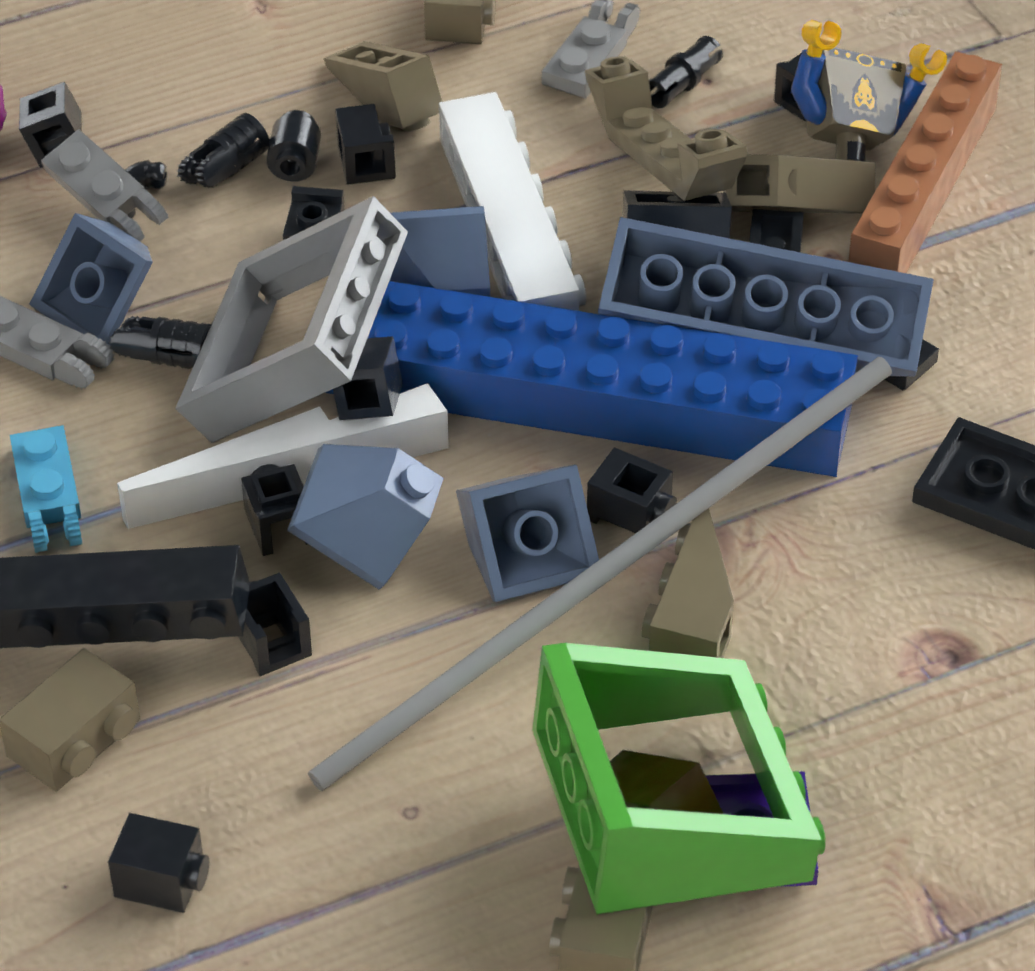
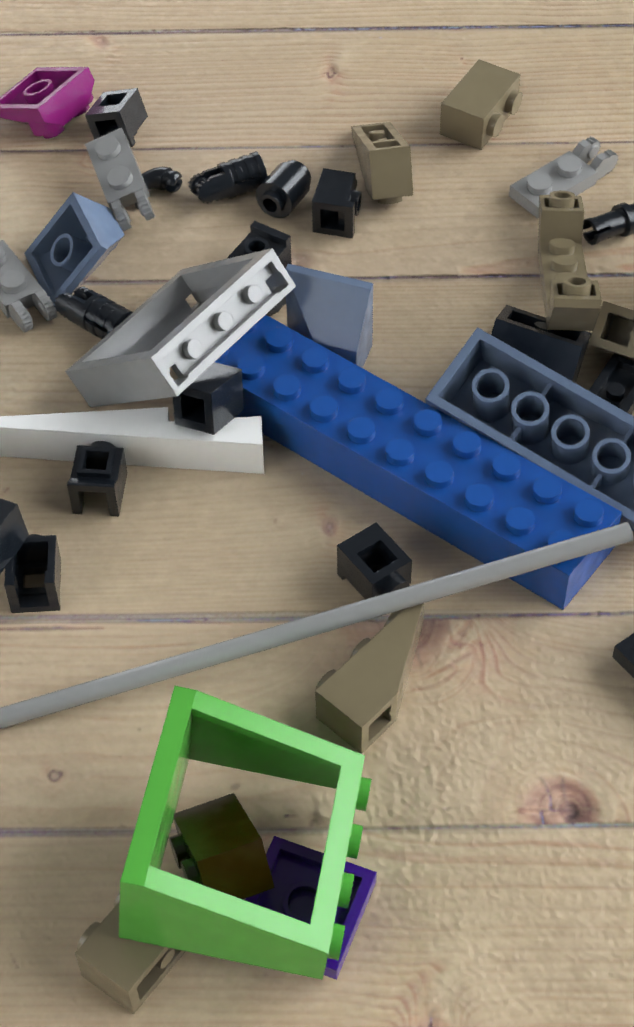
camera: 25 degrees right, 5 degrees up
(365, 507) = (152, 503): sand blue slope -> none
(520, 231) = (415, 290): white brick -> none
(528, 531) = (273, 569): sand blue slope -> none

